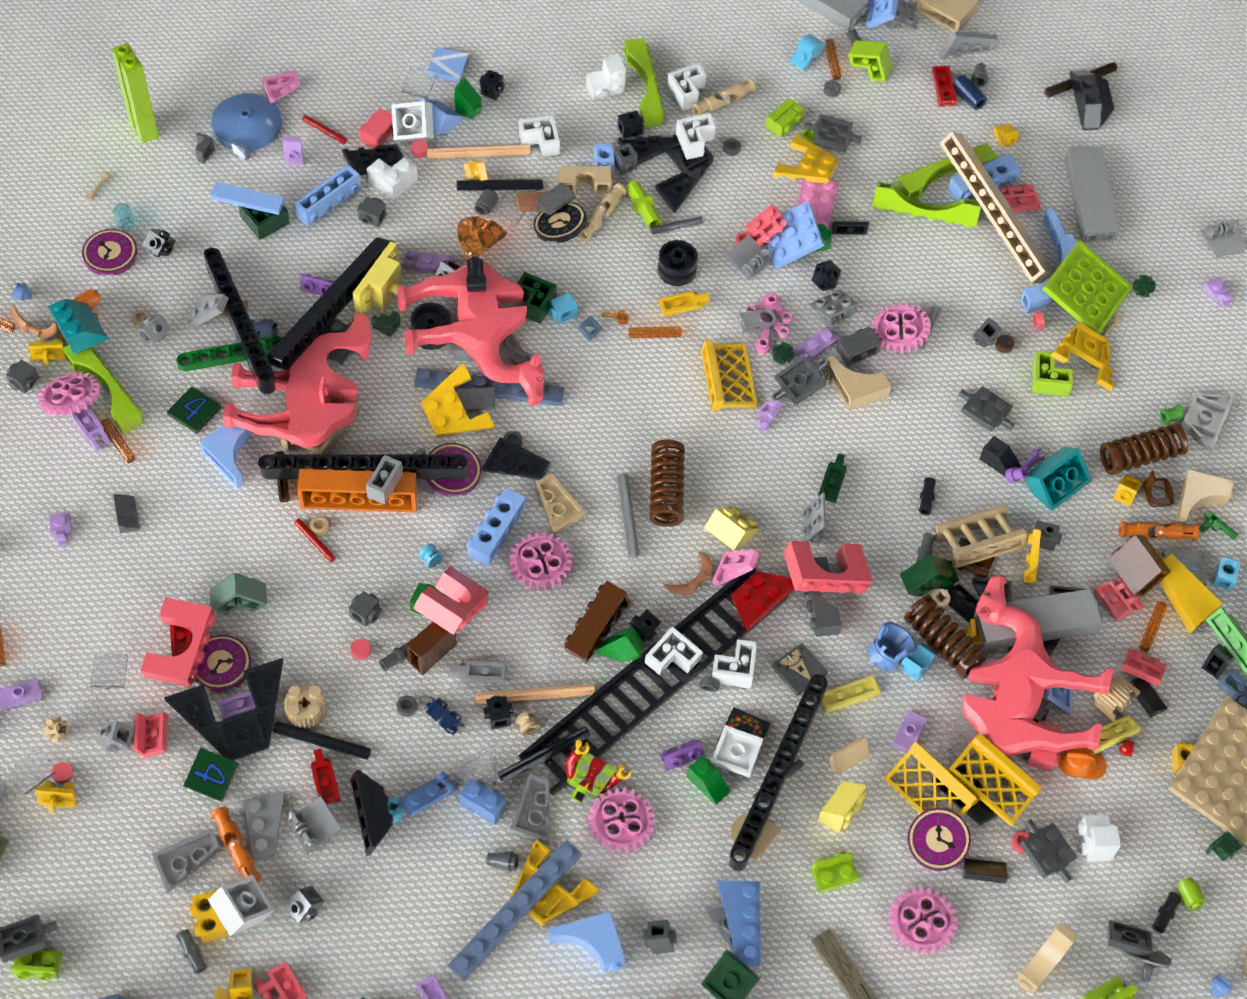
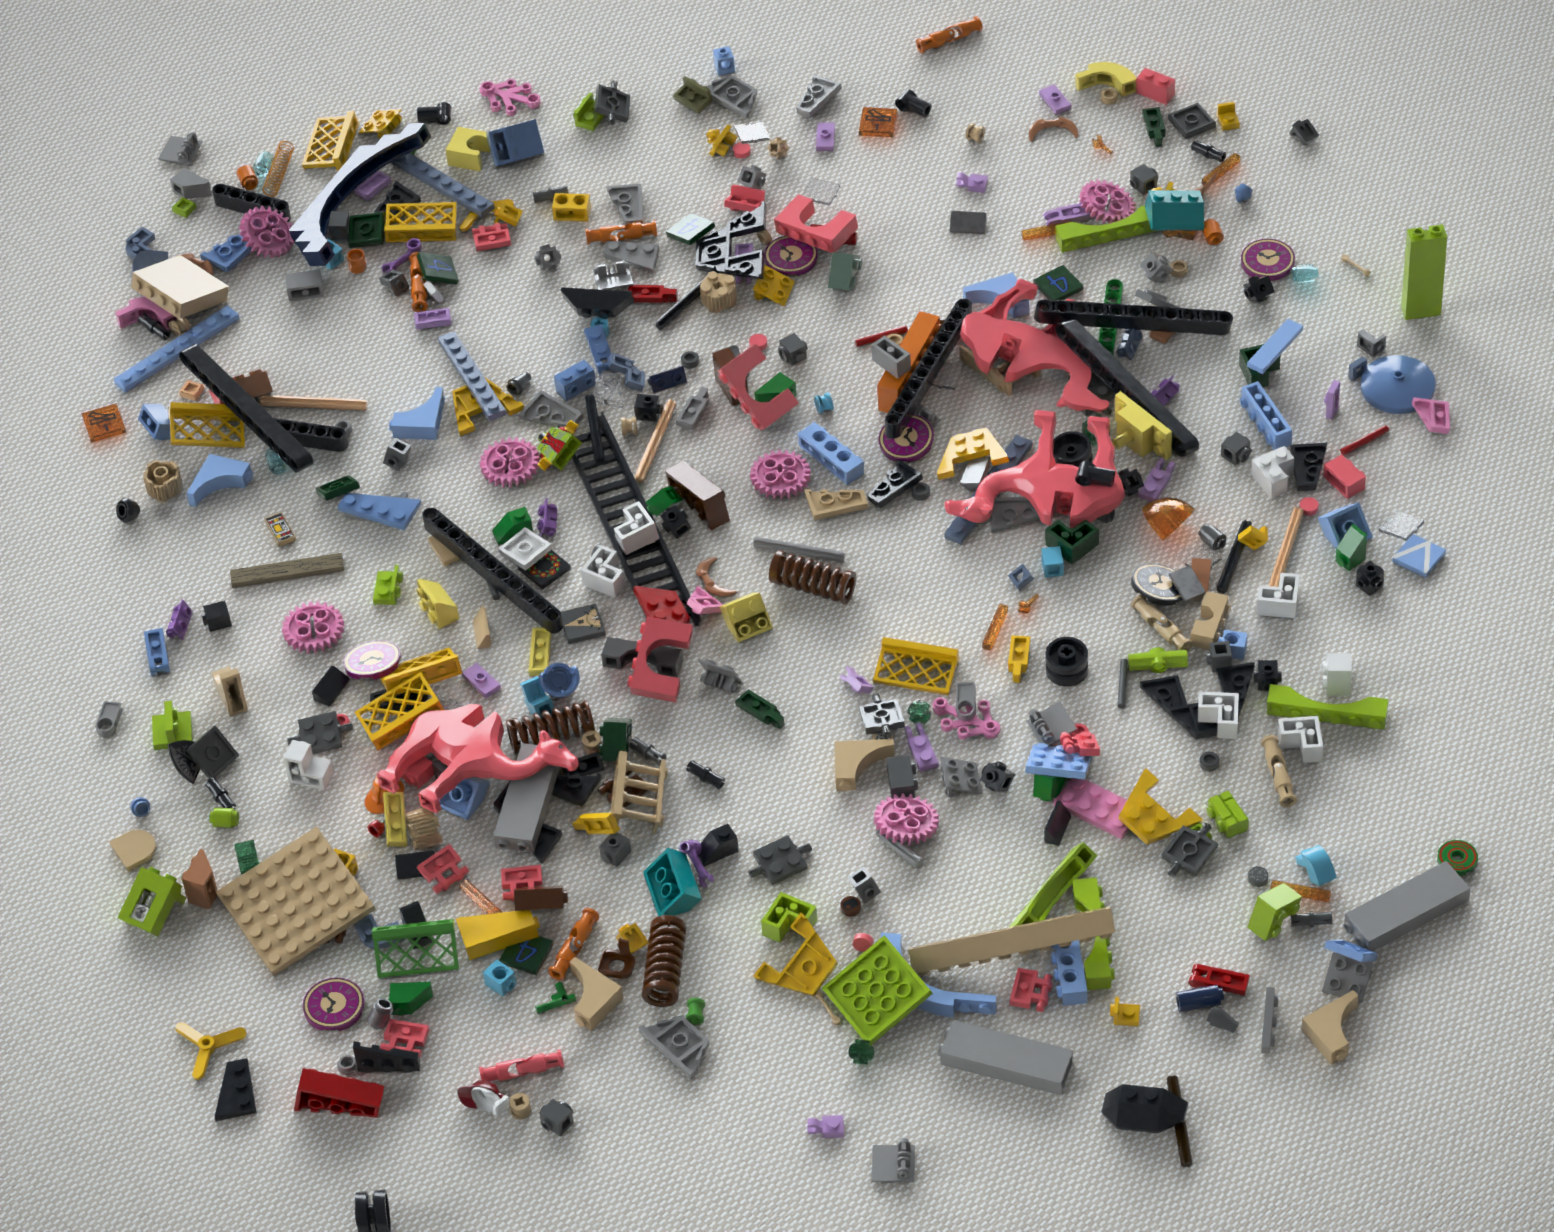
camera: 120 degrees right, 10 degrees down
(241, 905) = (564, 216): white brick -> none
(288, 653) = (773, 286): none -> yellow hinge
(412, 121) = (1331, 492): white brick -> none
(445, 756) = (633, 377): none -> sand blue plate

